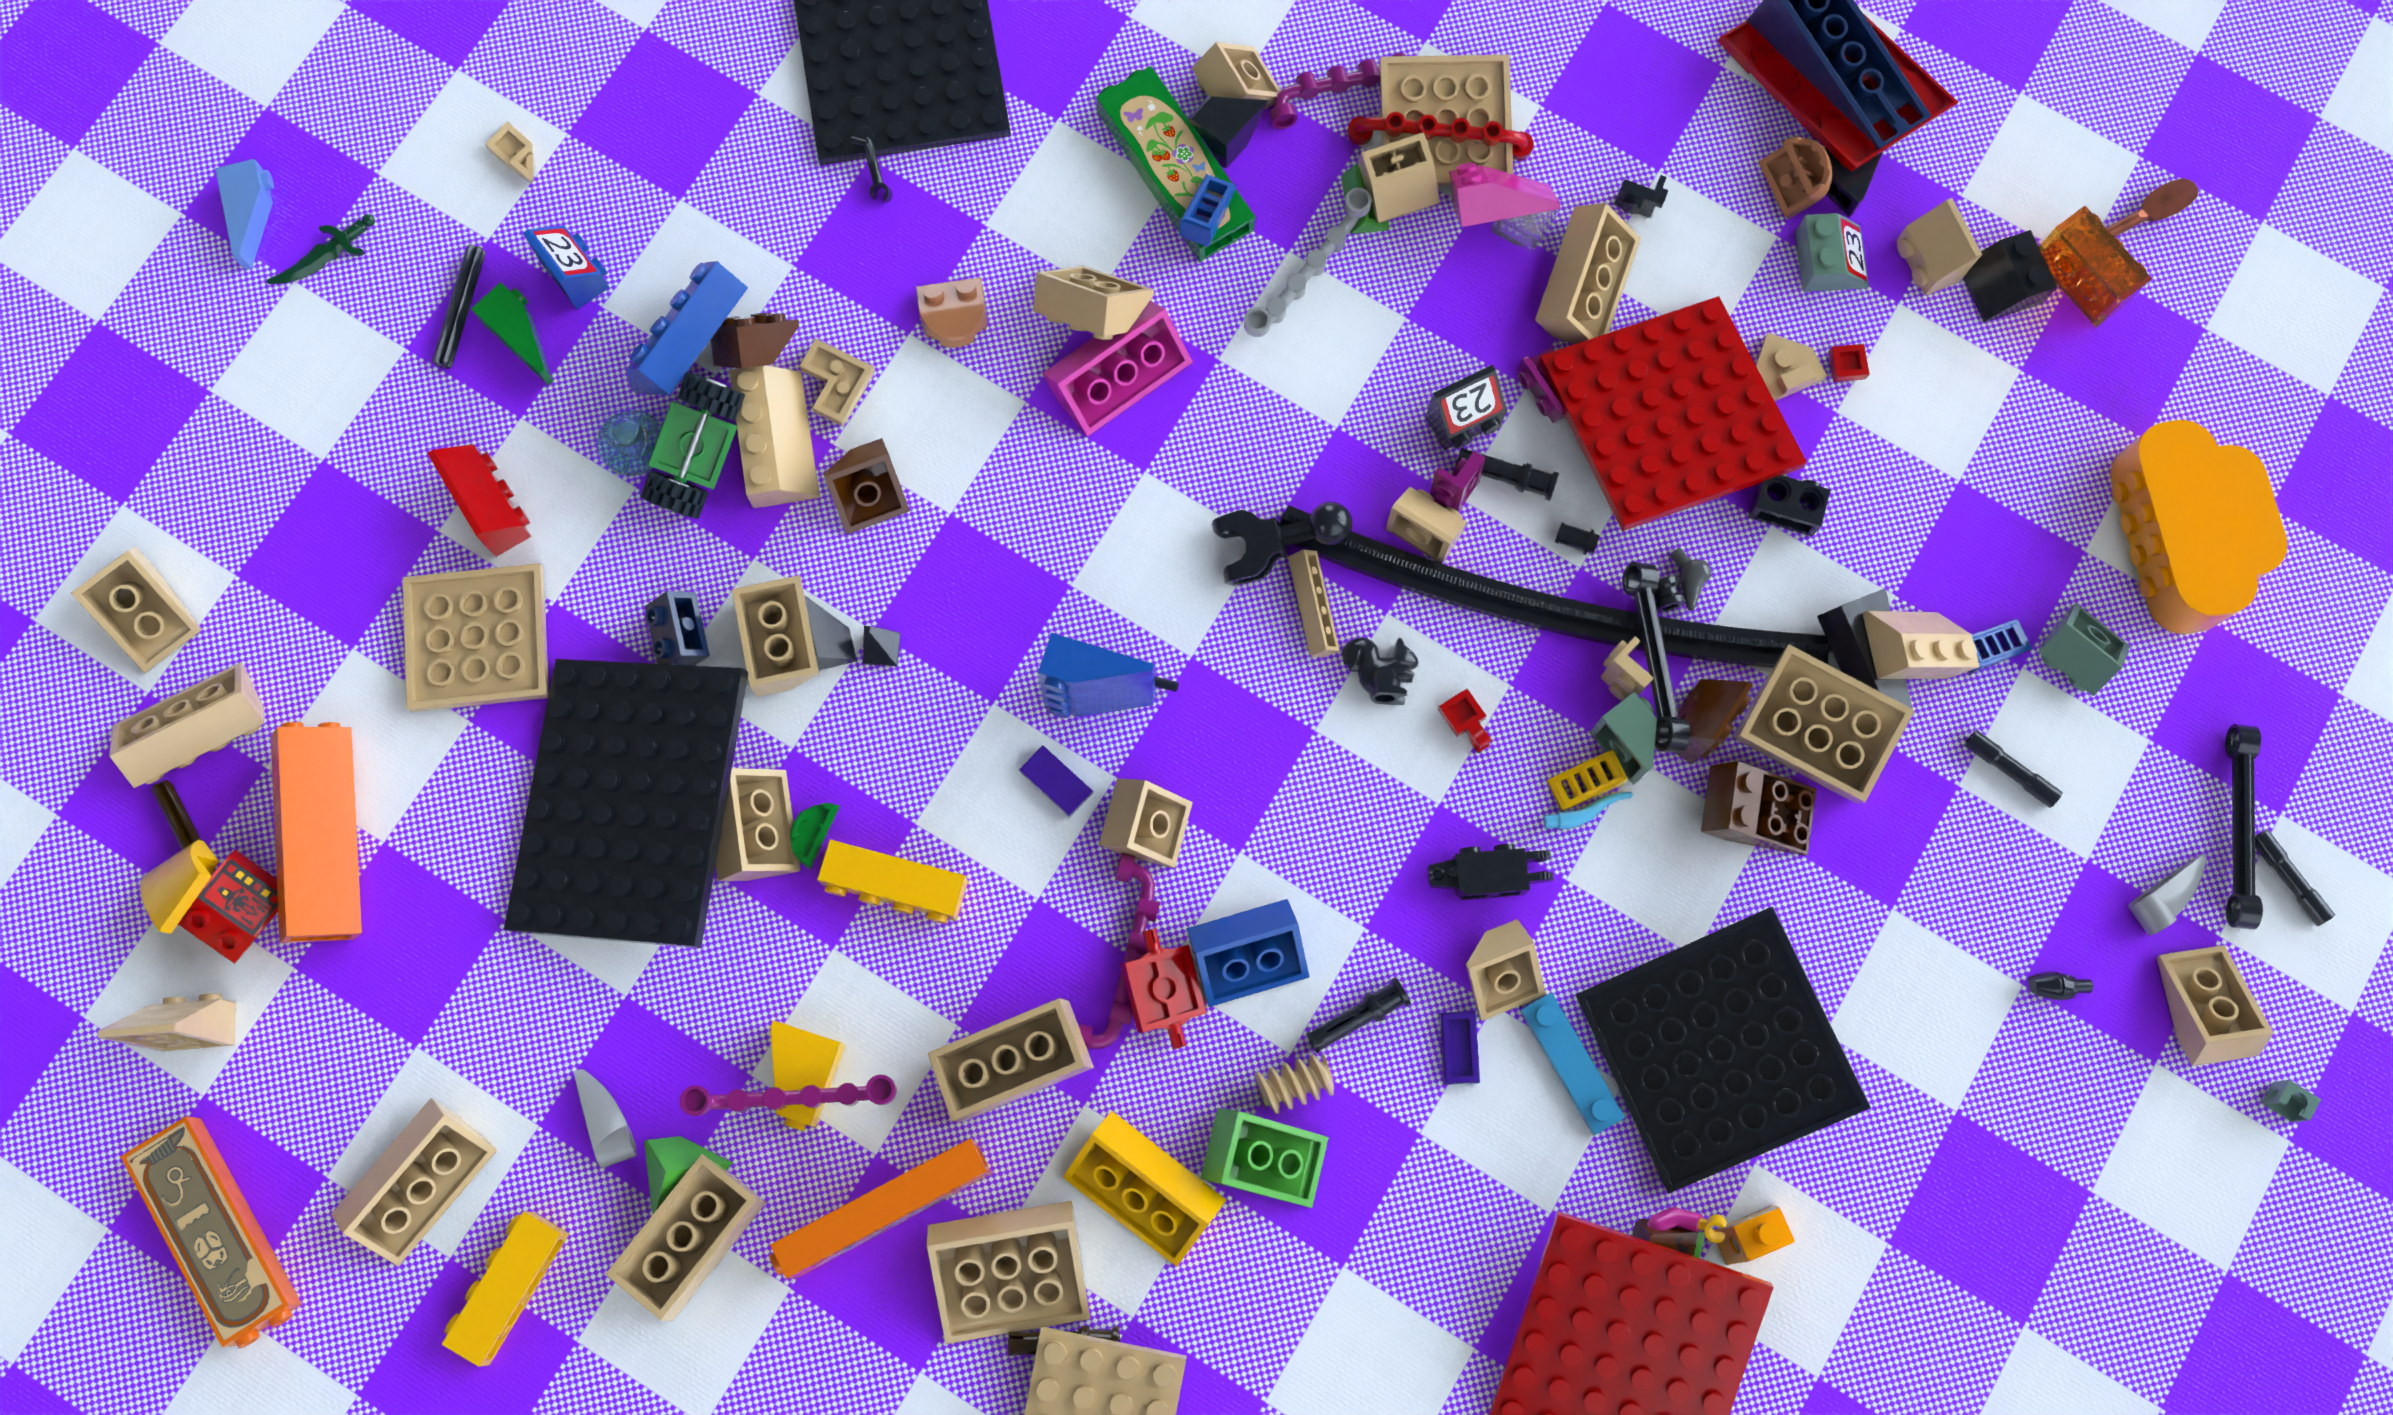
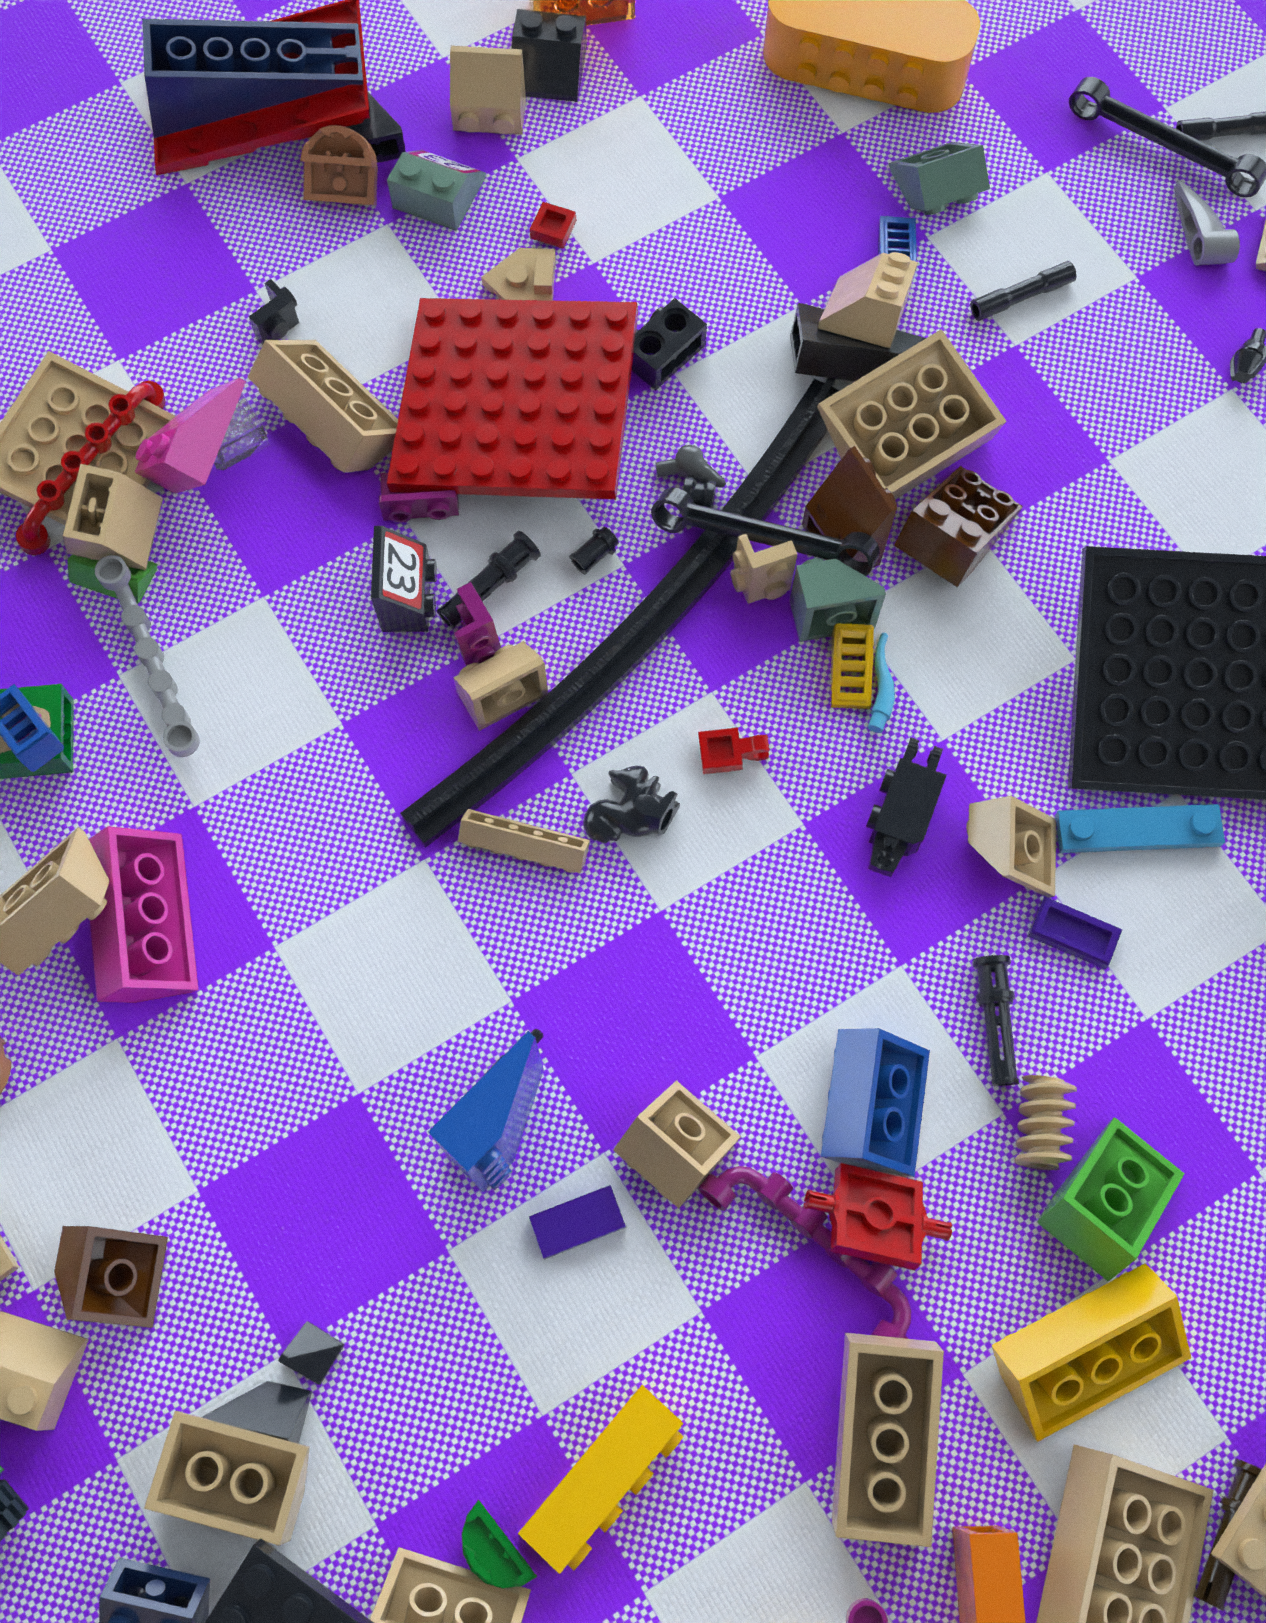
camera: 60 degrees left, 5 degrees down
(1267, 539) = (429, 852): black piece -> none

